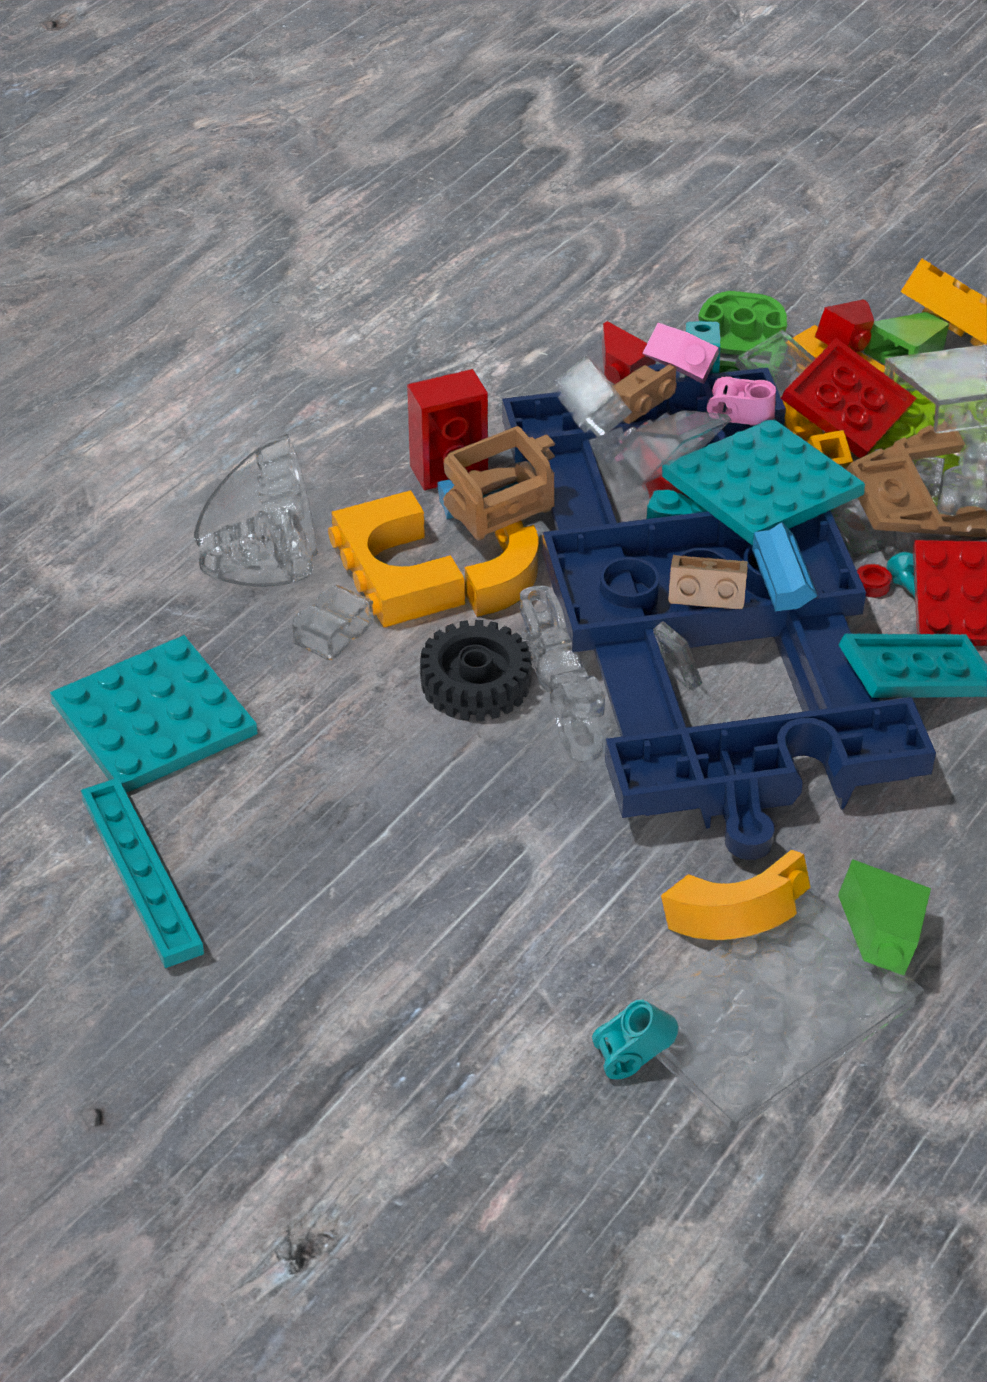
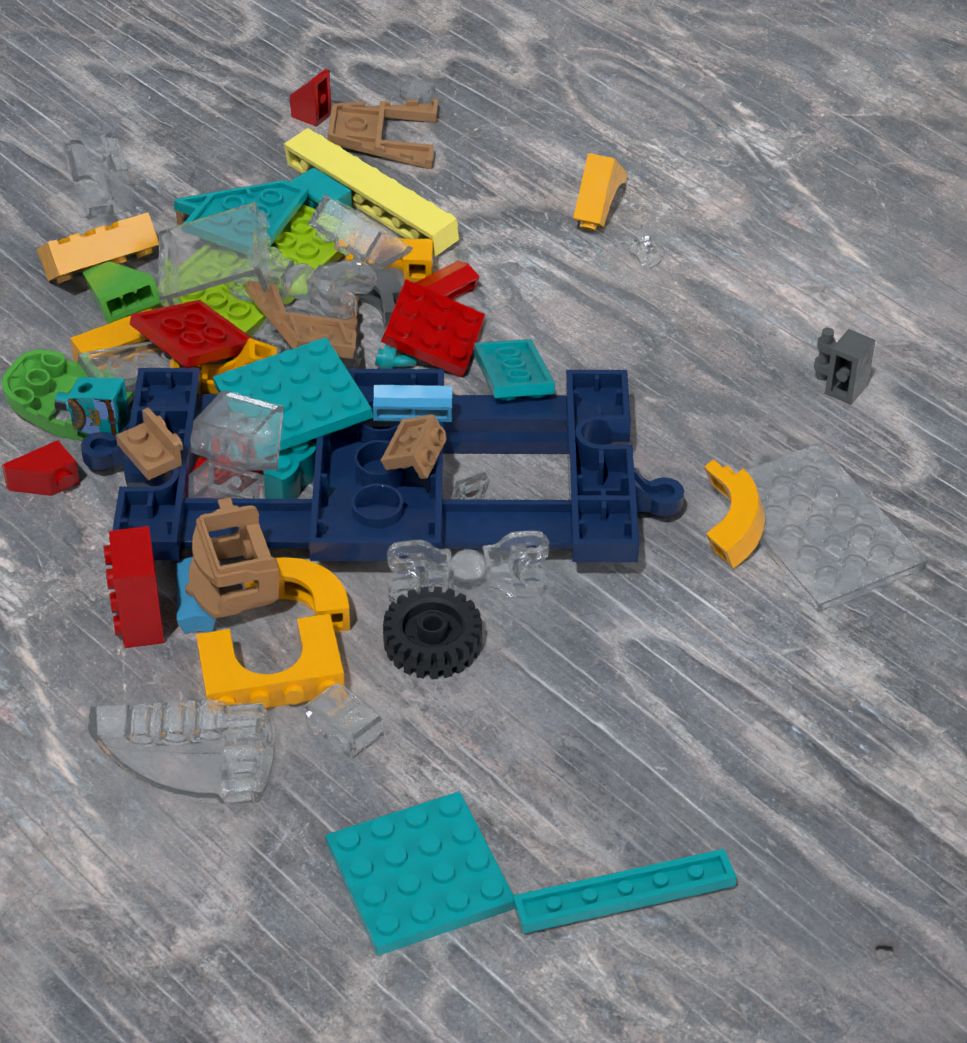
camera: 80 degrees left, 0 degrees up
(592, 397) = (161, 470): clear brick -> none
(634, 1036) = (857, 597): teal piece -> none
(683, 350) = (127, 400): bright pink slope -> none
(745, 400) = (194, 382): bright pink piece -> none
(848, 323) = (99, 311): red slope -> none
(883, 915) = (763, 440): bright green slope -> none

